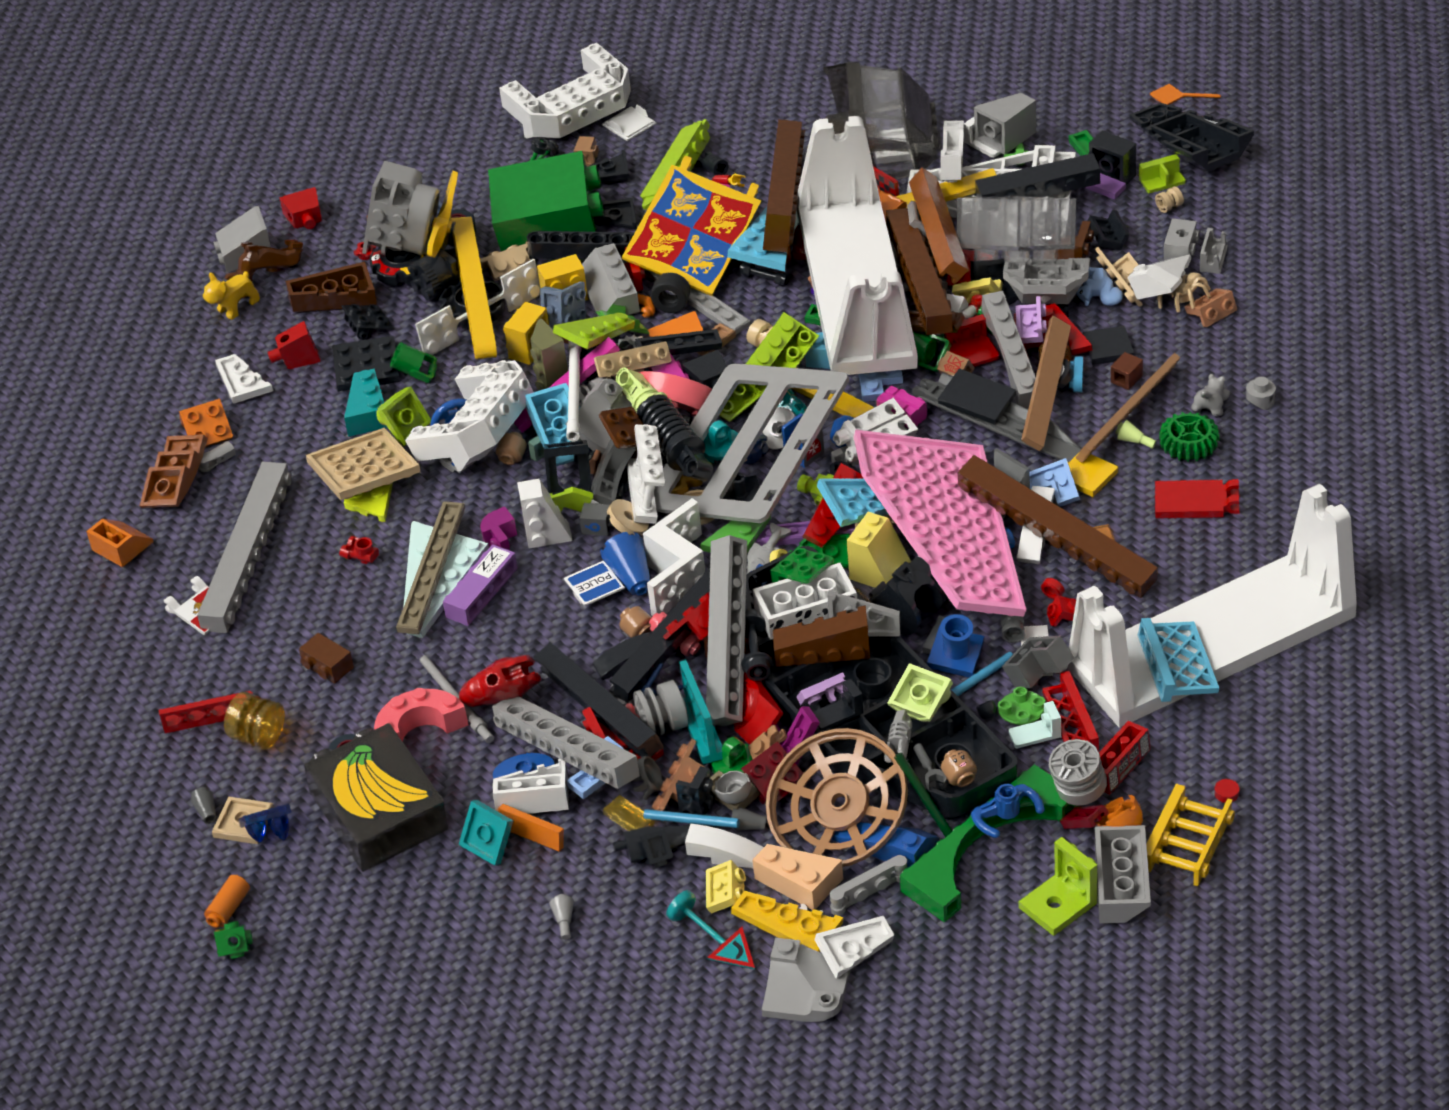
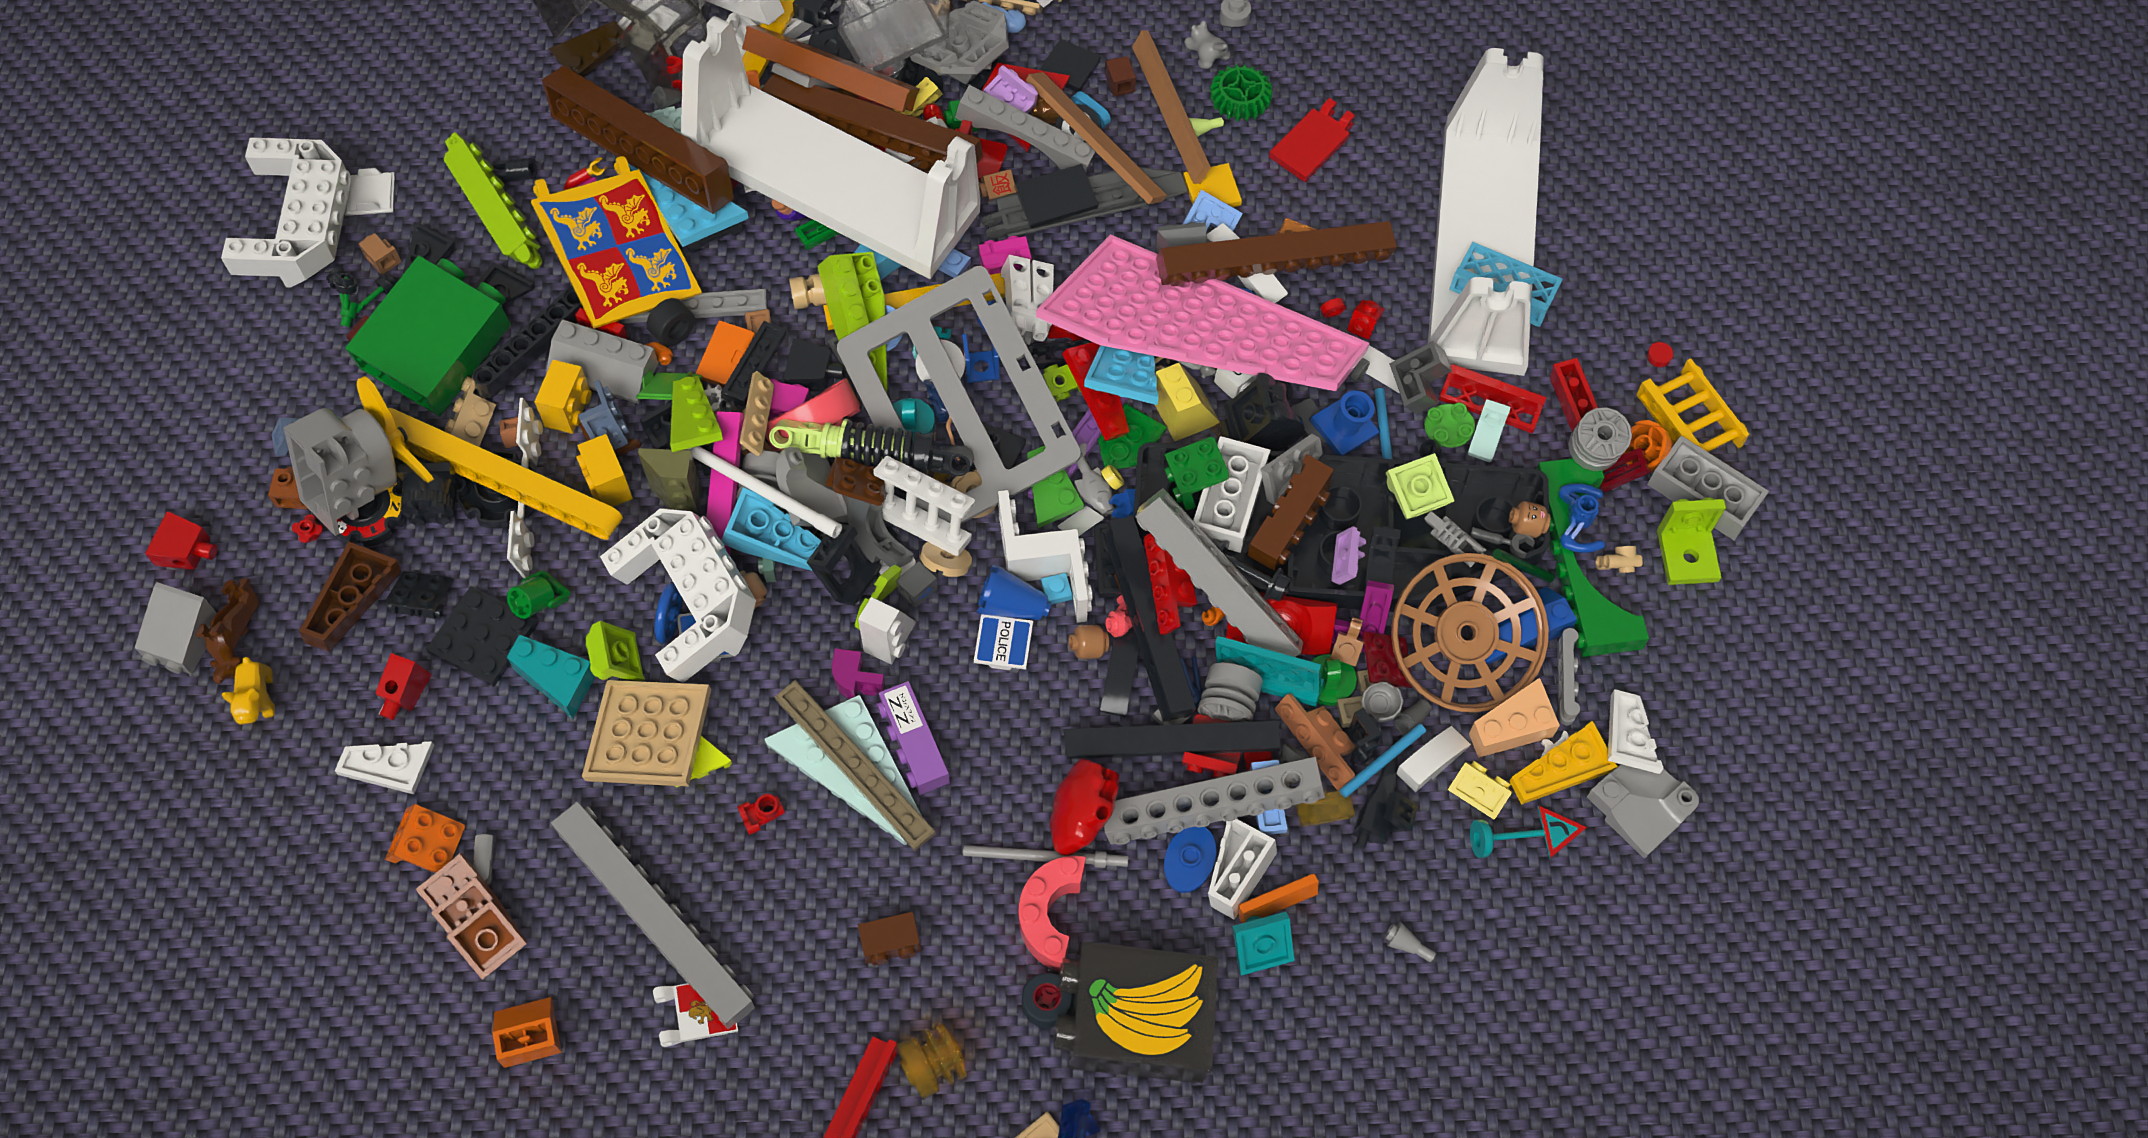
camera: 60 degrees left, 20 degrees up
(1006, 864) = (1624, 559): none -> tan plate

